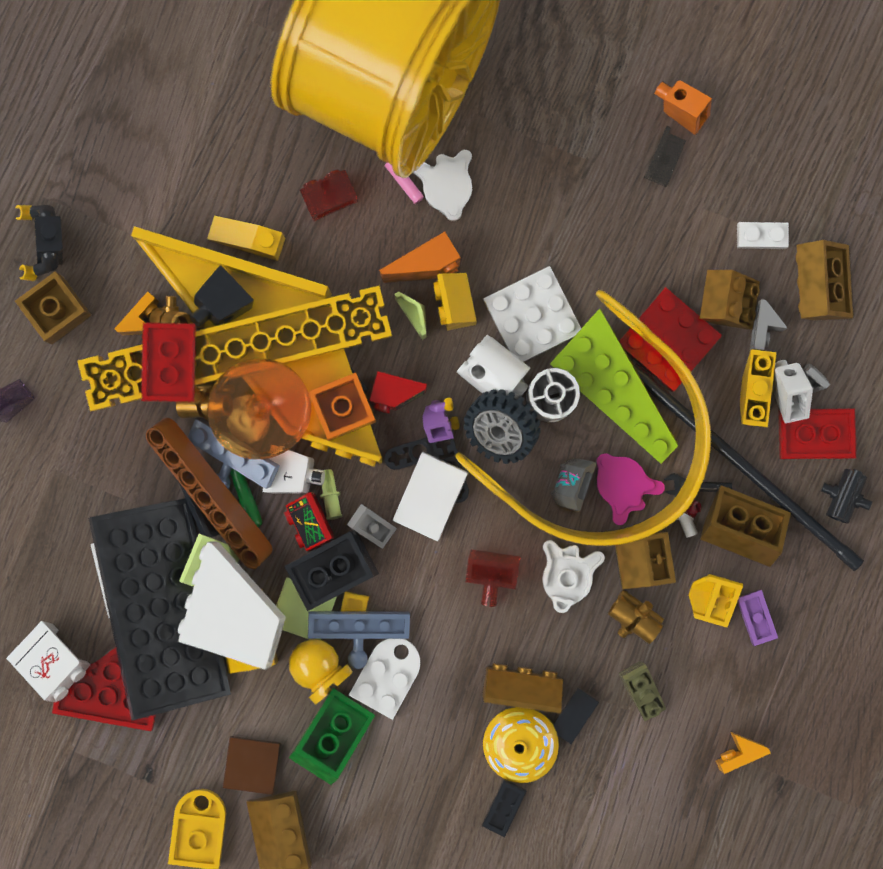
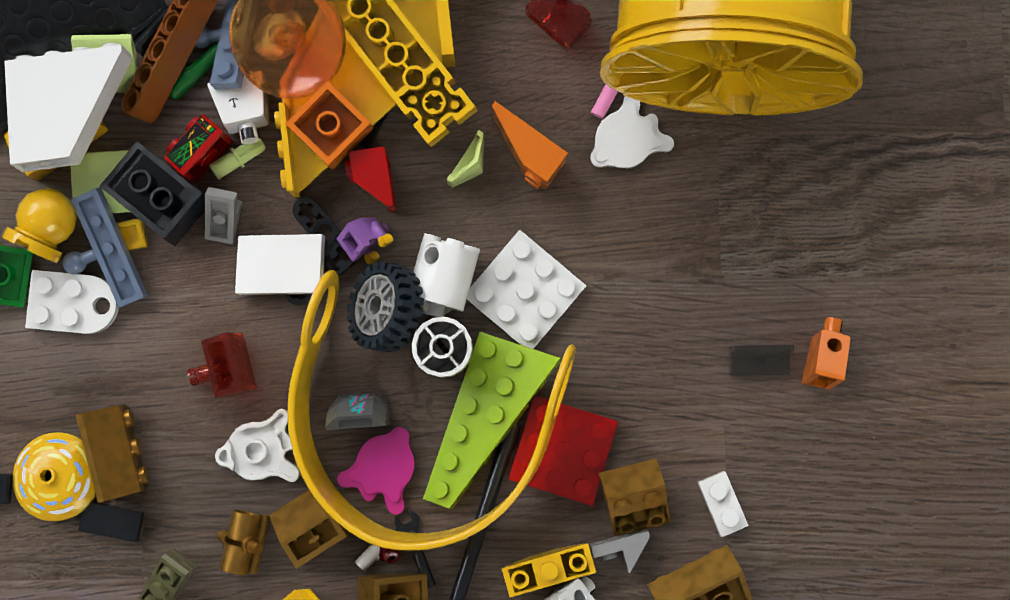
camera: 65 degrees right, 0 degrees up
(456, 300) = (502, 198): yellow slope -> none

